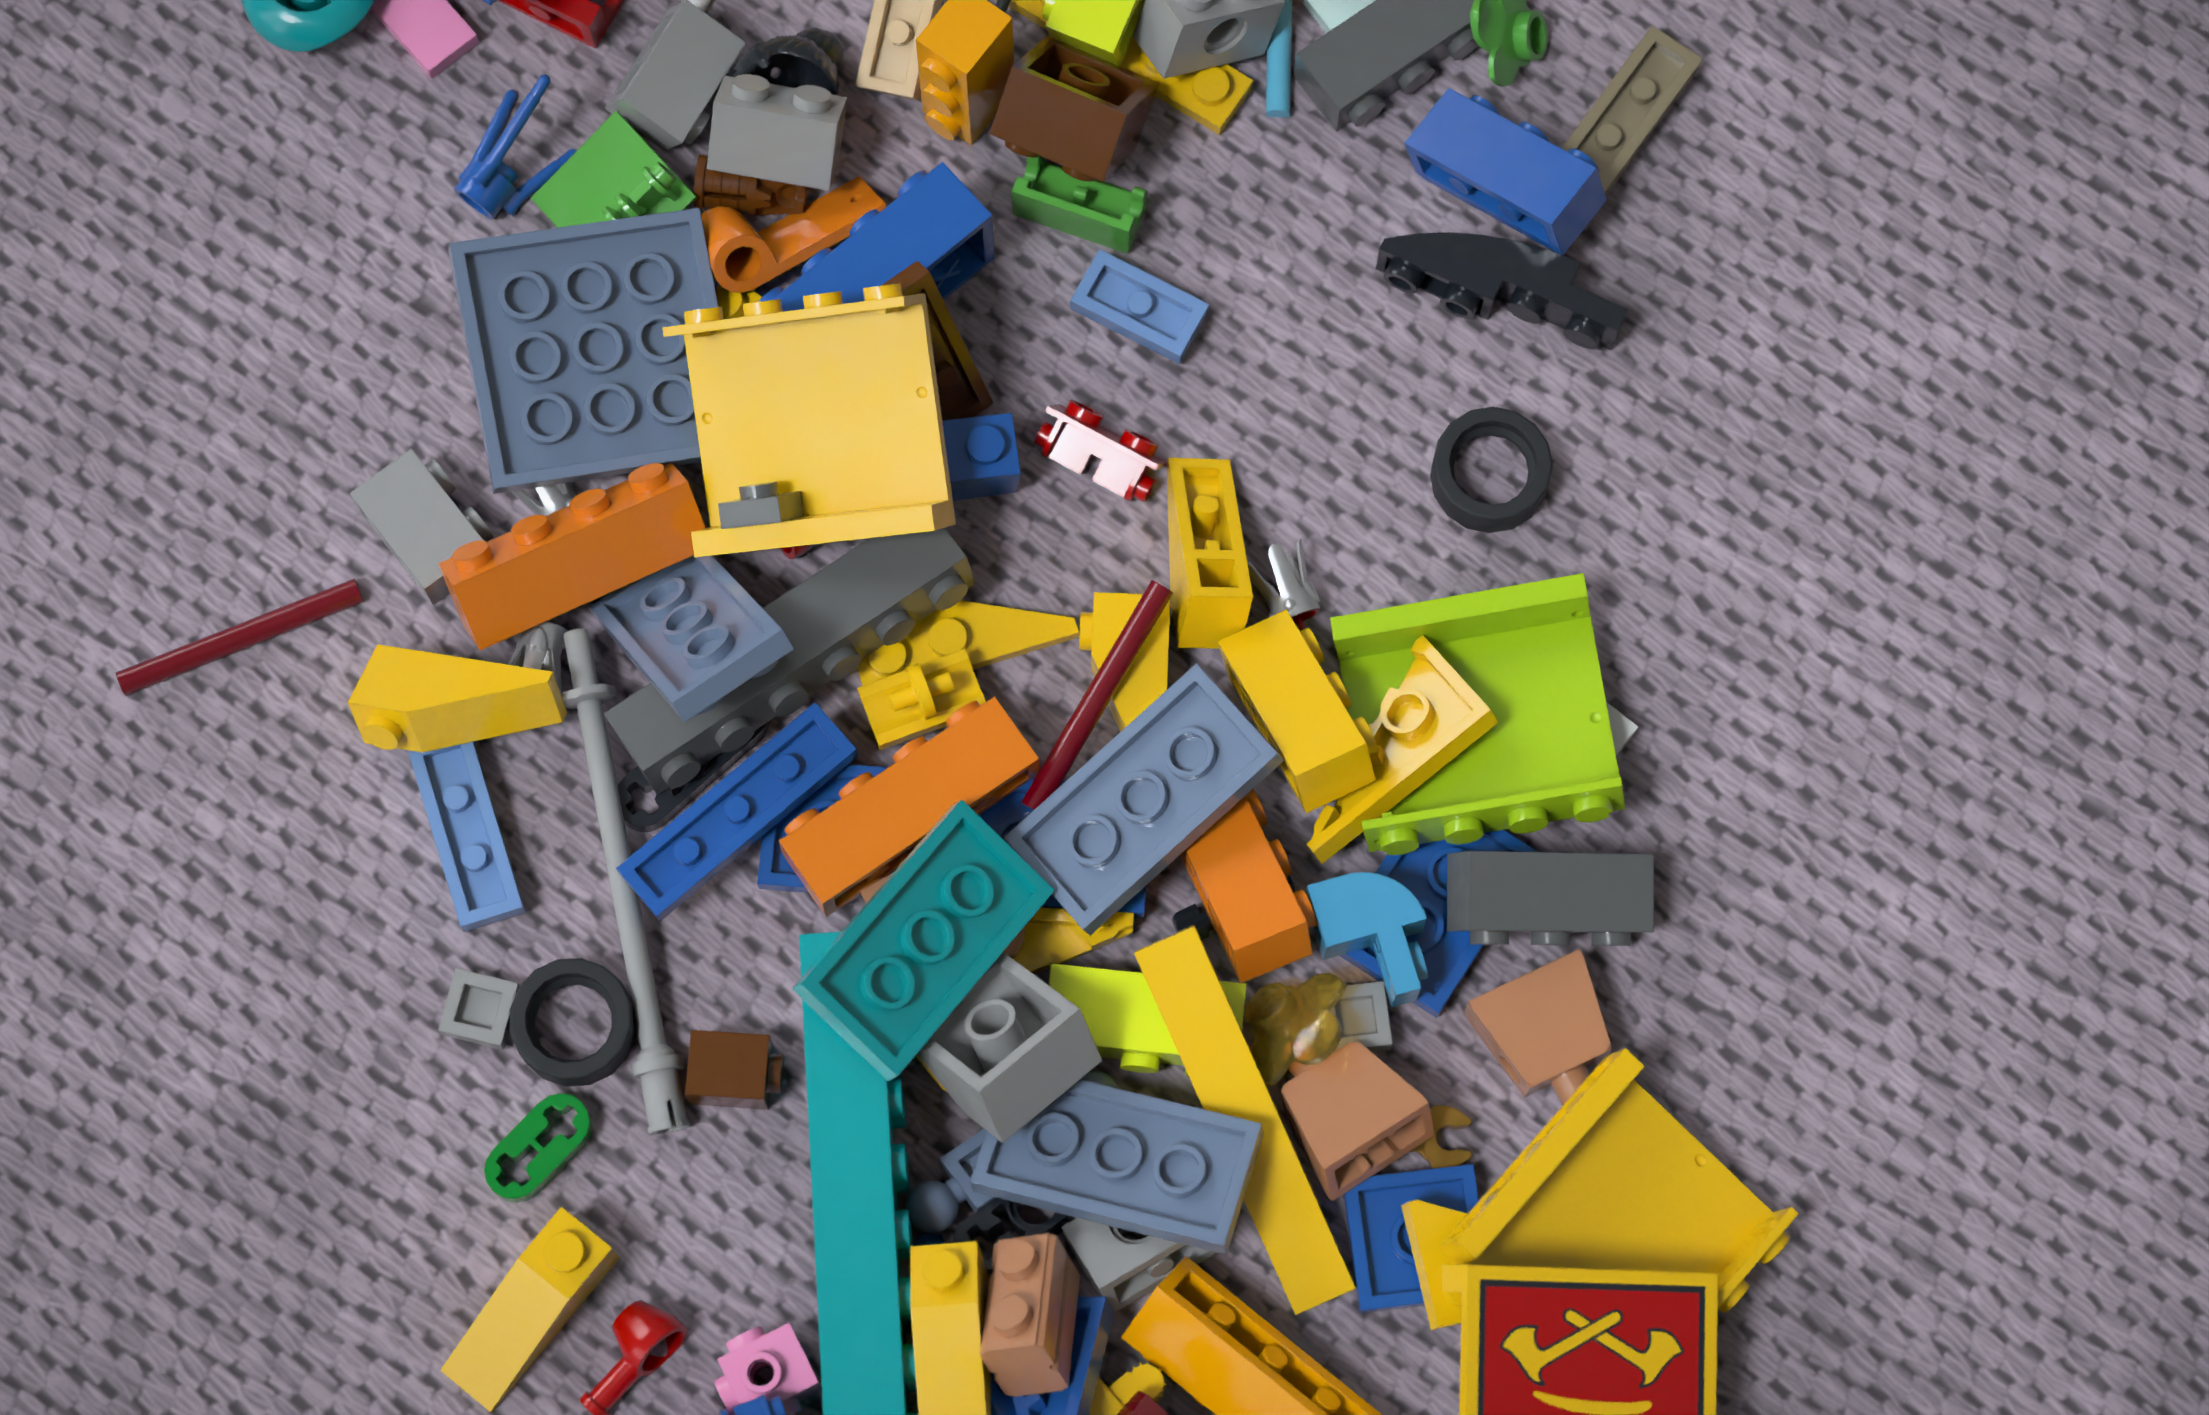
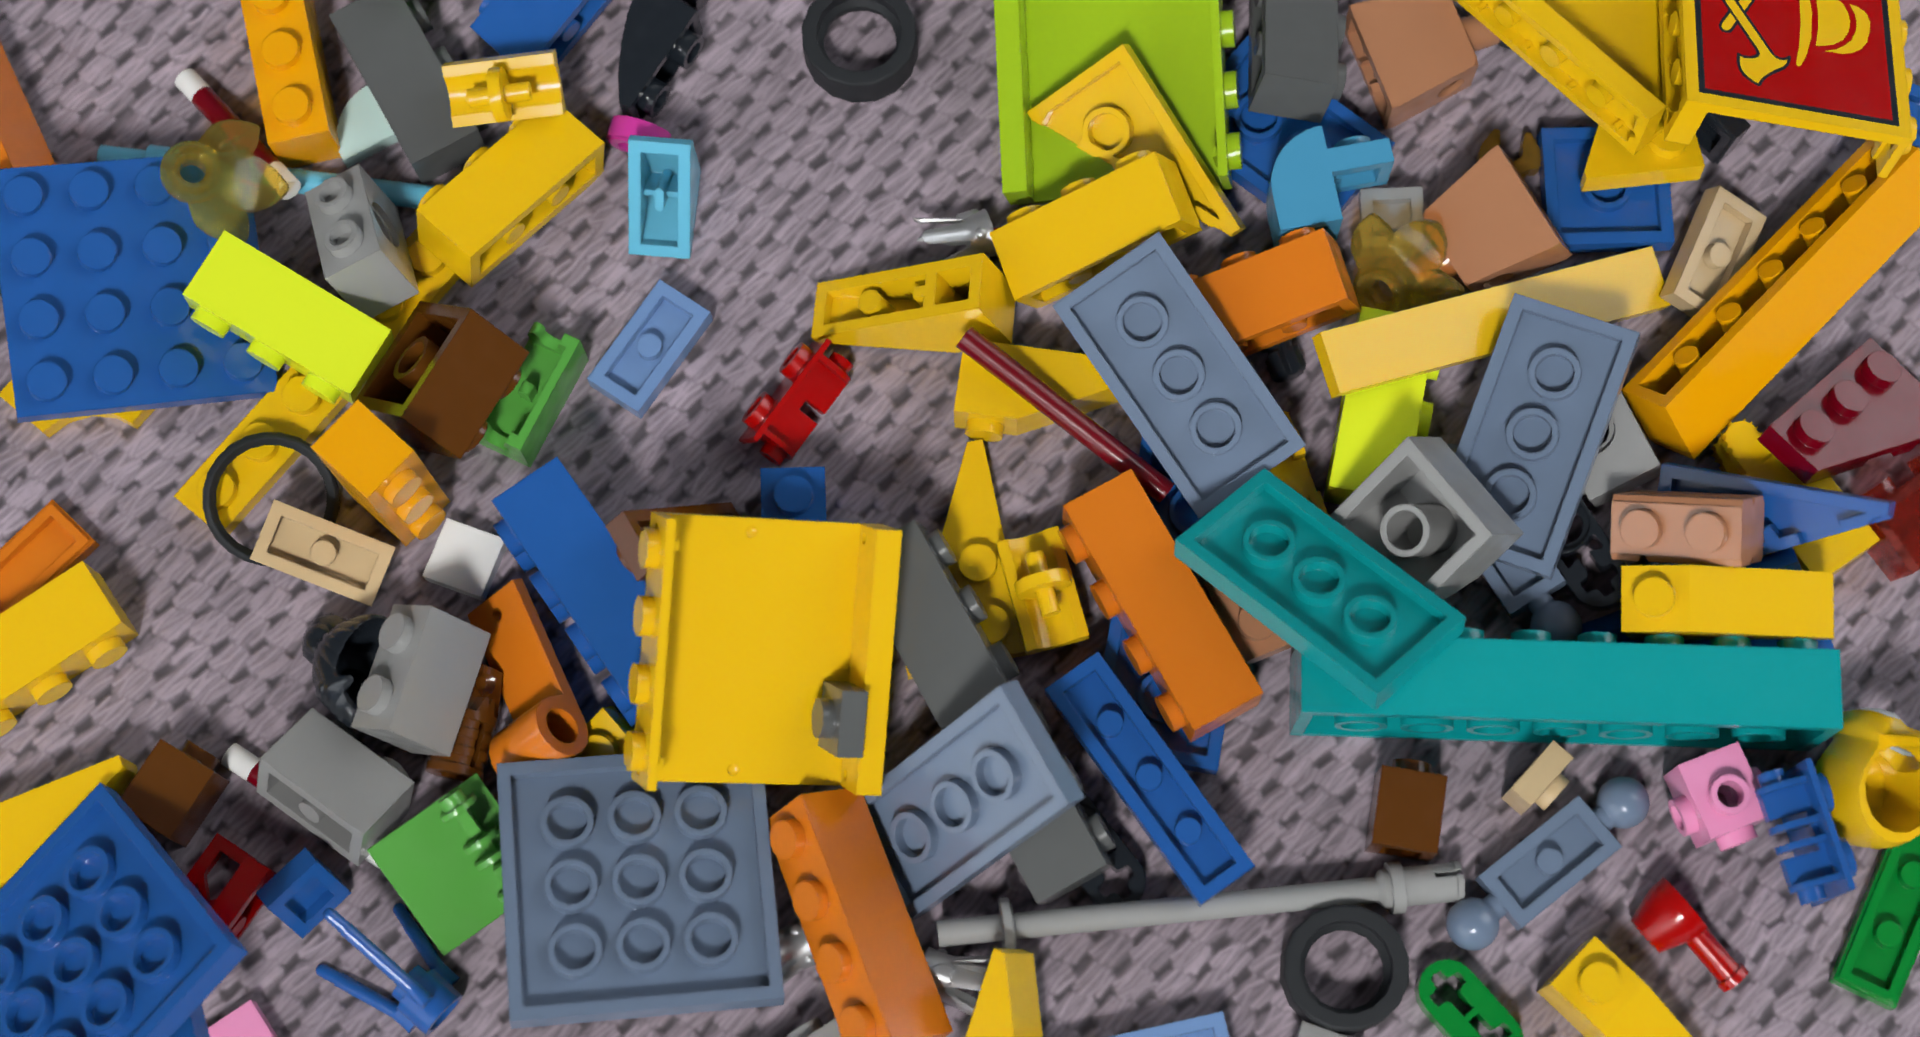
camera: 80 degrees left, 0 degrees up
(576, 64) = (303, 892): none -> blue tile
(693, 1215) = (1547, 863): none -> sand blue plate
(773, 1200) = (1540, 781): none -> tan plate
(906, 155) = (465, 559): none -> white tile
(1282, 150) = (508, 193): none -> yellow brick
(1295, 297) = (662, 196): none -> medium azure slope
(1357, 1352) = (1712, 250): none -> tan plate
(1359, 267) = (624, 126): none -> dark pink tile
(1376, 125) = (504, 88): none -> yellow hips

